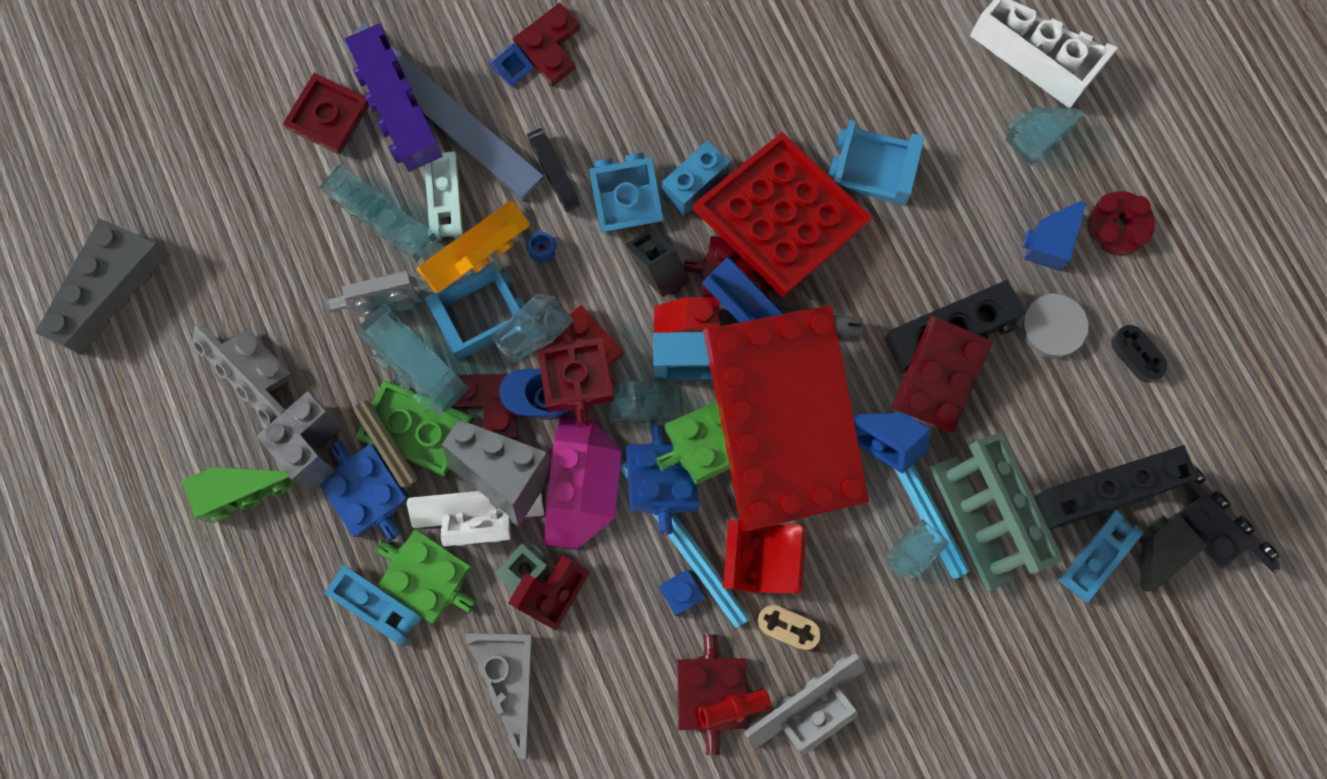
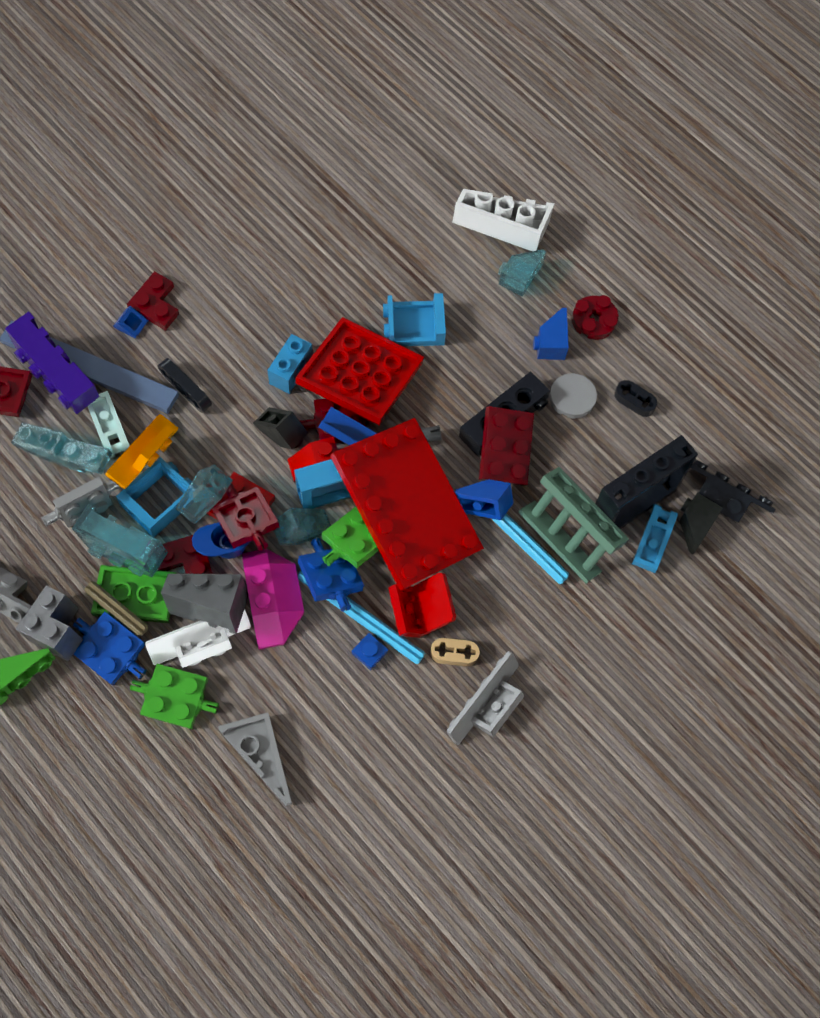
camera: 25 degrees left, 10 degrees down
(372, 604) = (140, 728): dark azure plate -> none
(510, 573) = (244, 659): sand green brick -> none
(538, 239) = (188, 435): blue plate -> none
(552, 600) = (273, 682): dark red plate -> none
(625, 192) = (242, 386): dark azure plate -> none
(706, 682) = (414, 715): dark red plate -> none
(734, 708) = (434, 715): red pin -> none
(916, 550) = (526, 568): clear light blue brick -> none

